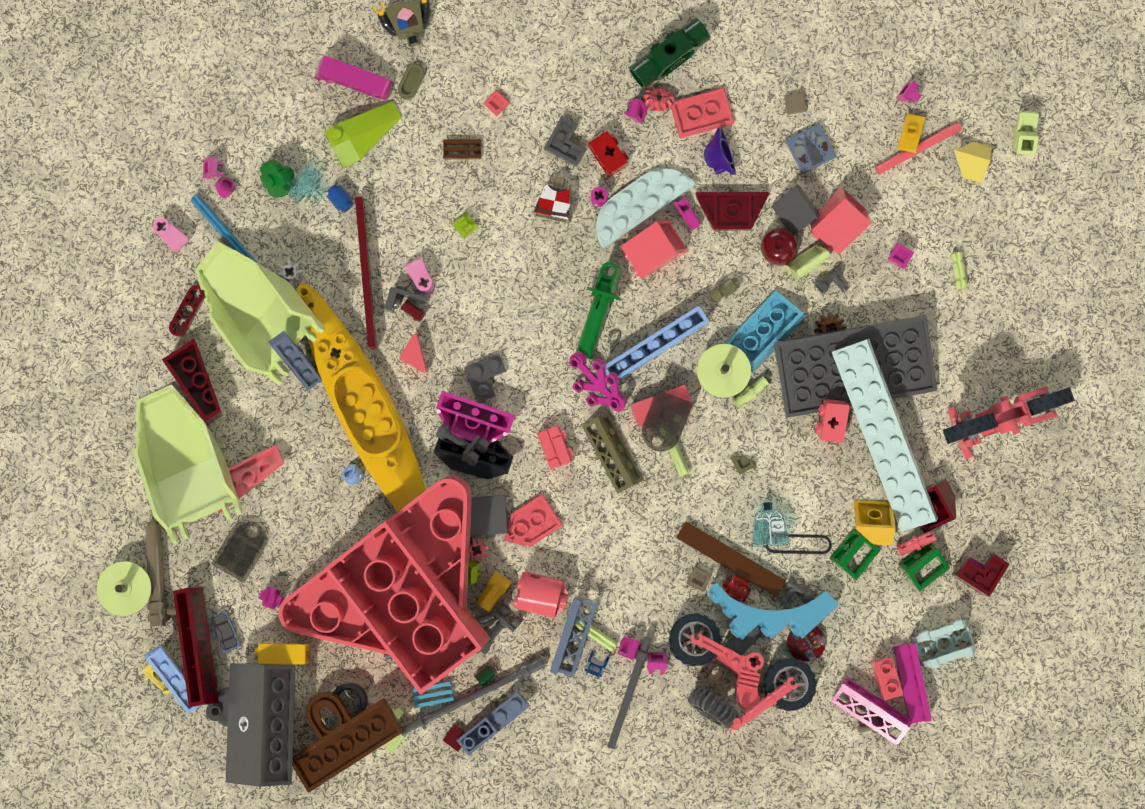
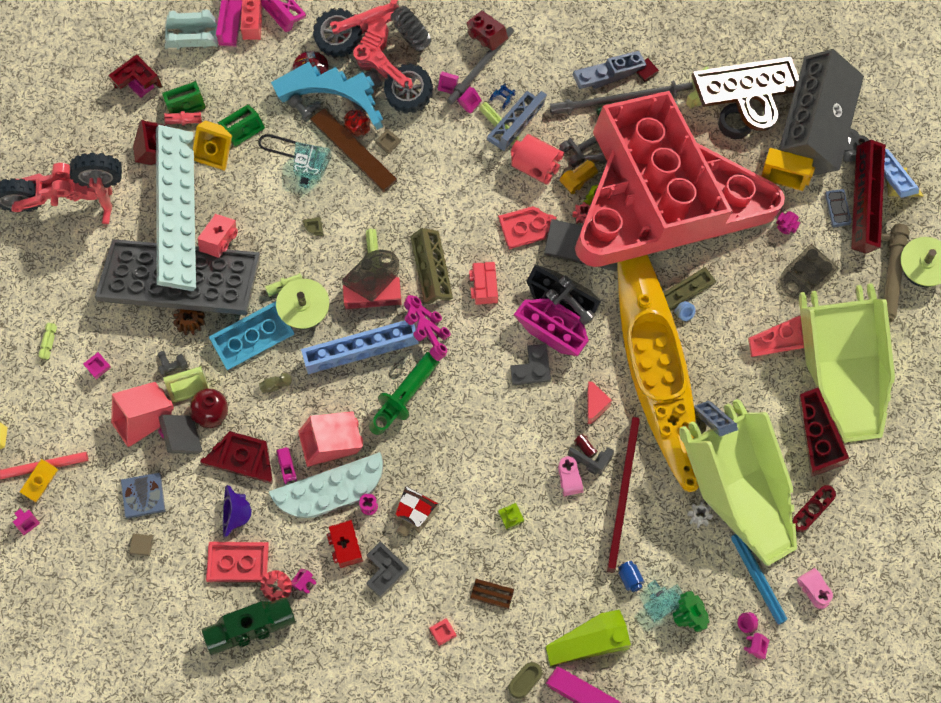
camera: 165 degrees left, 15 degrees down
(355, 501) = (689, 288): none -> olive tile
(634, 733) = (487, 30): none -> dark red brick

